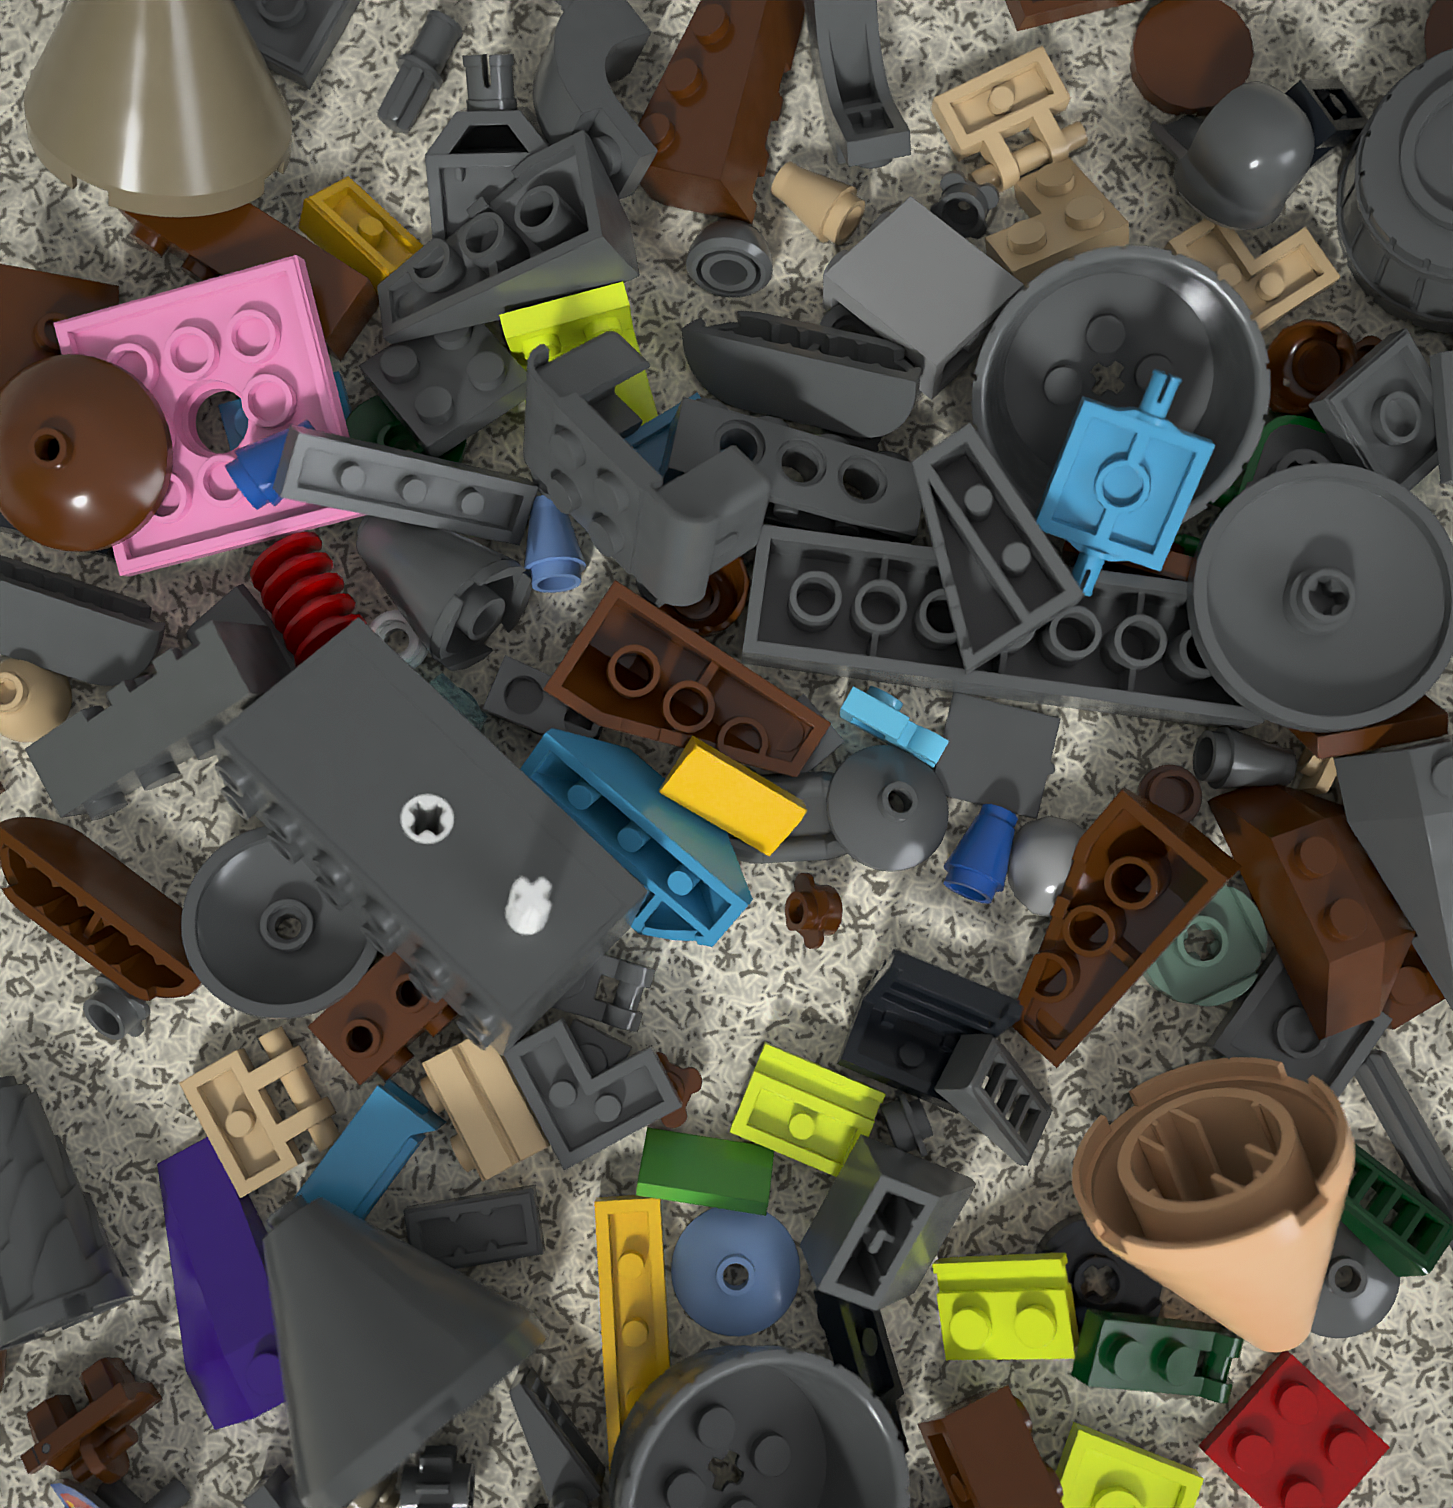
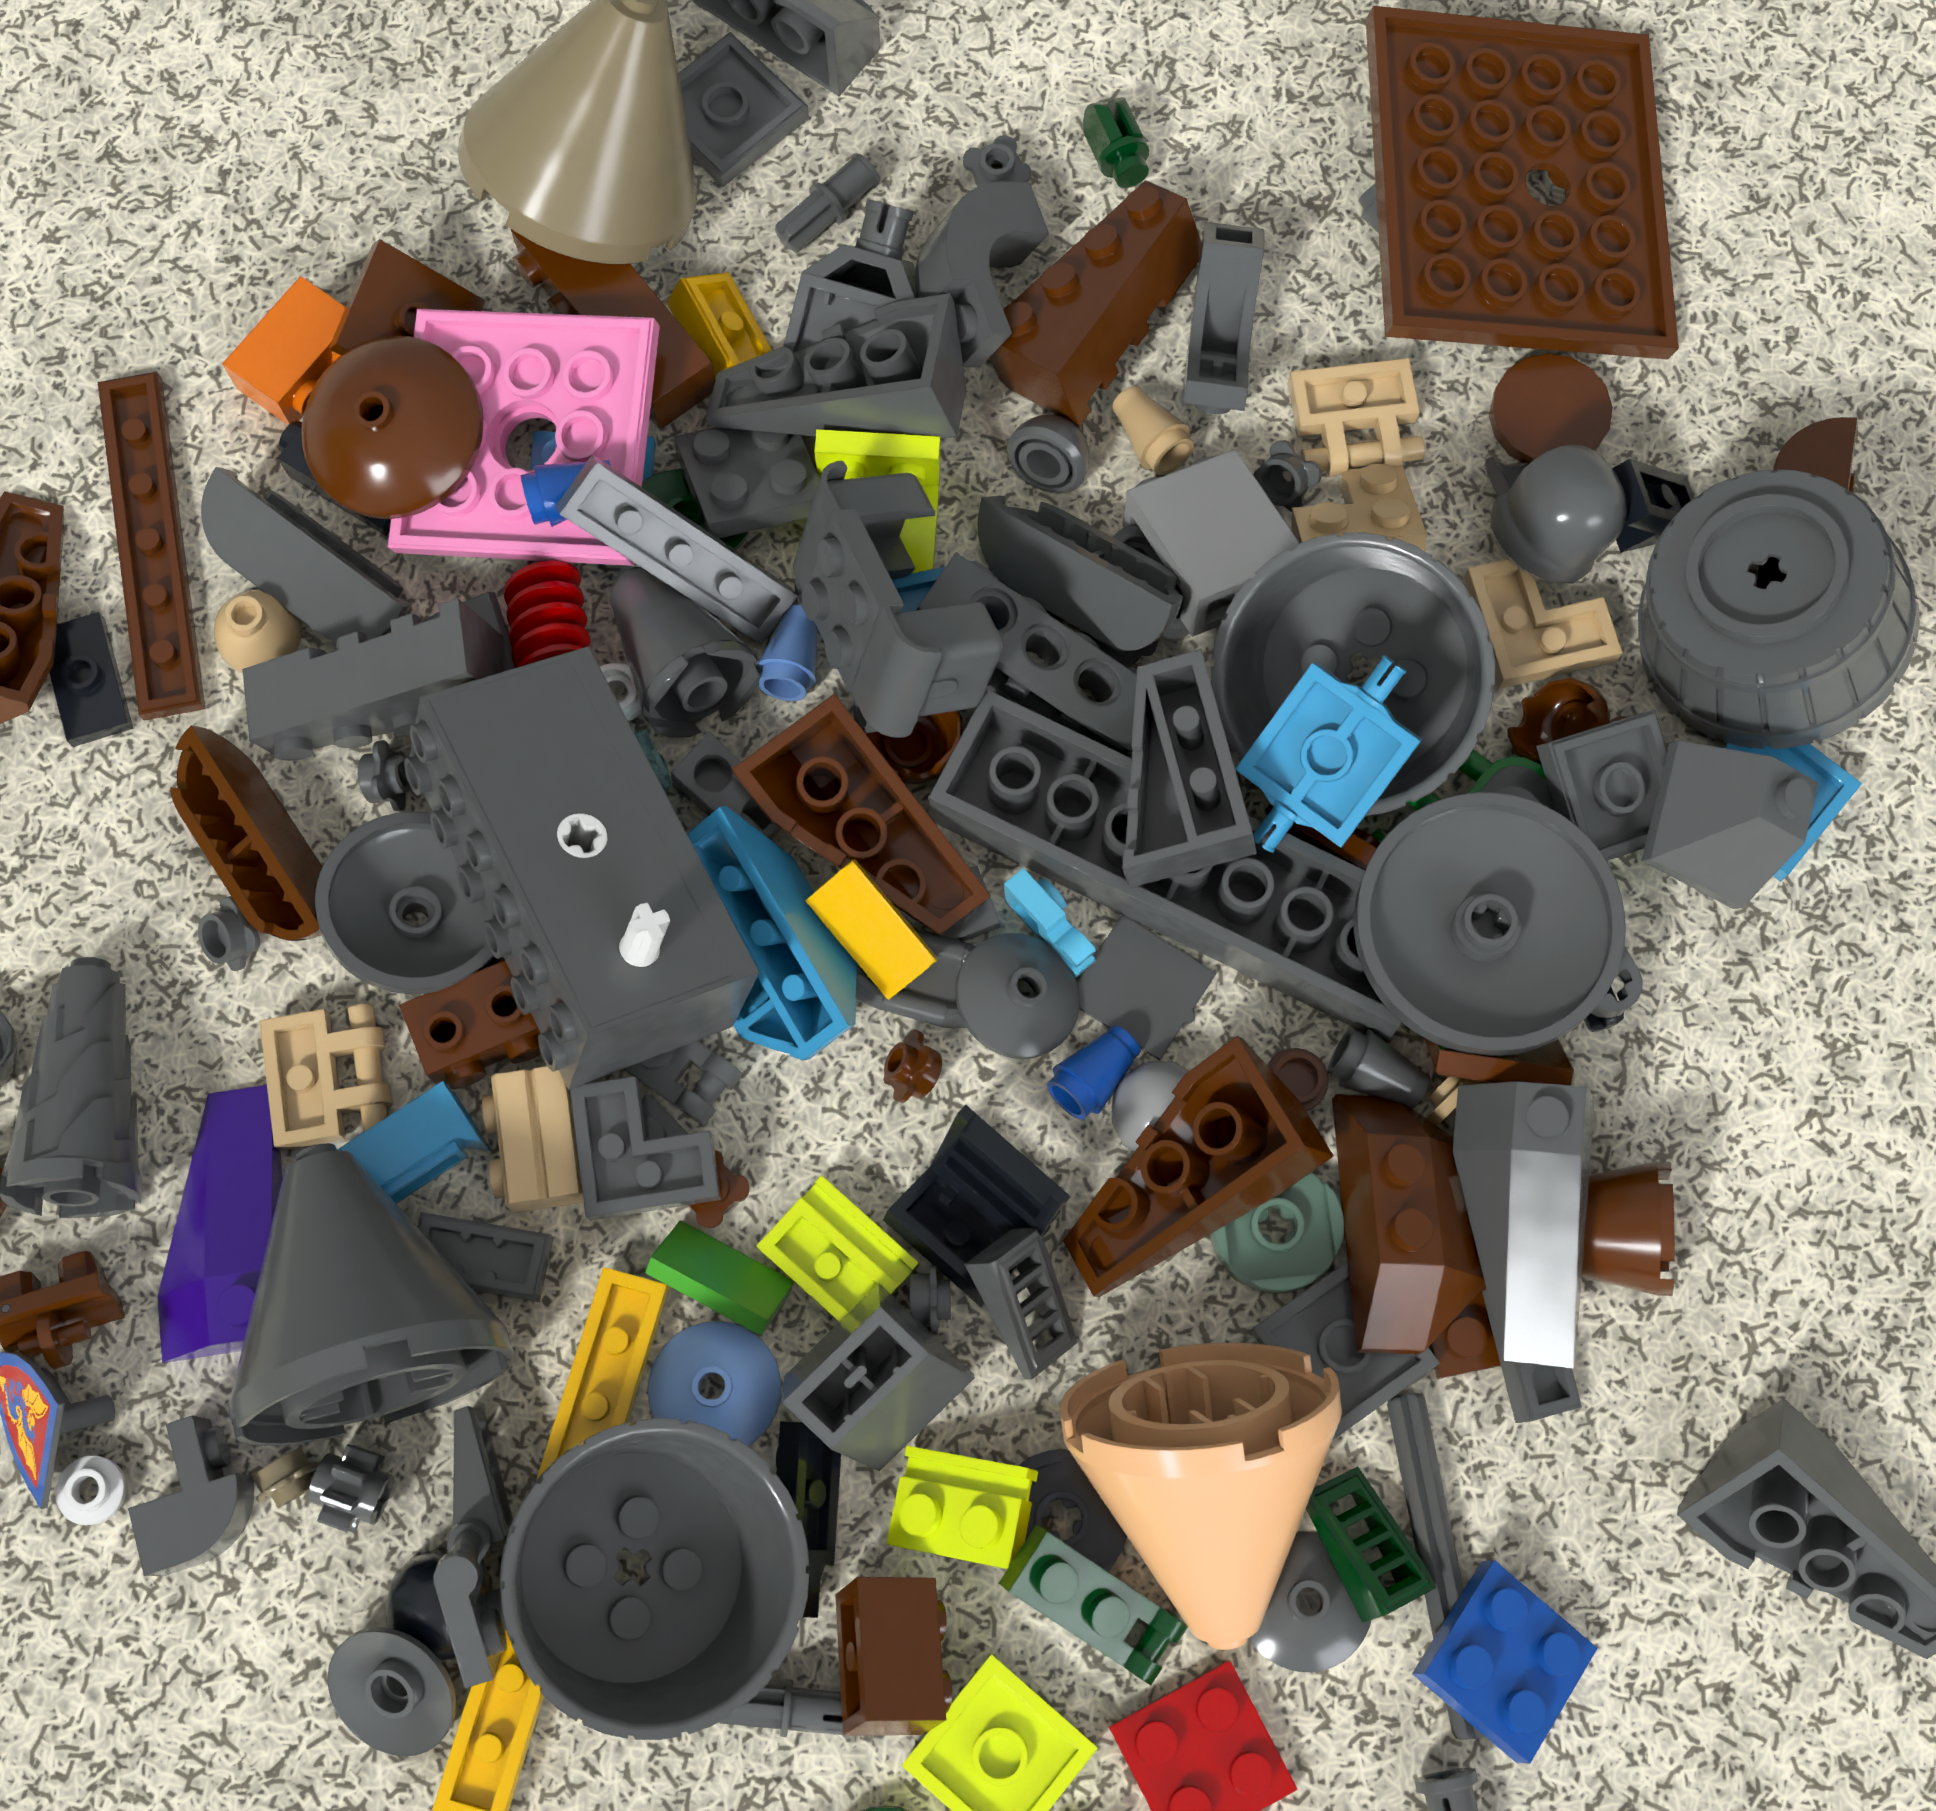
camera: 20 degrees right, 10 degrees down
(202, 802) = (384, 776): none -> dark grey plate

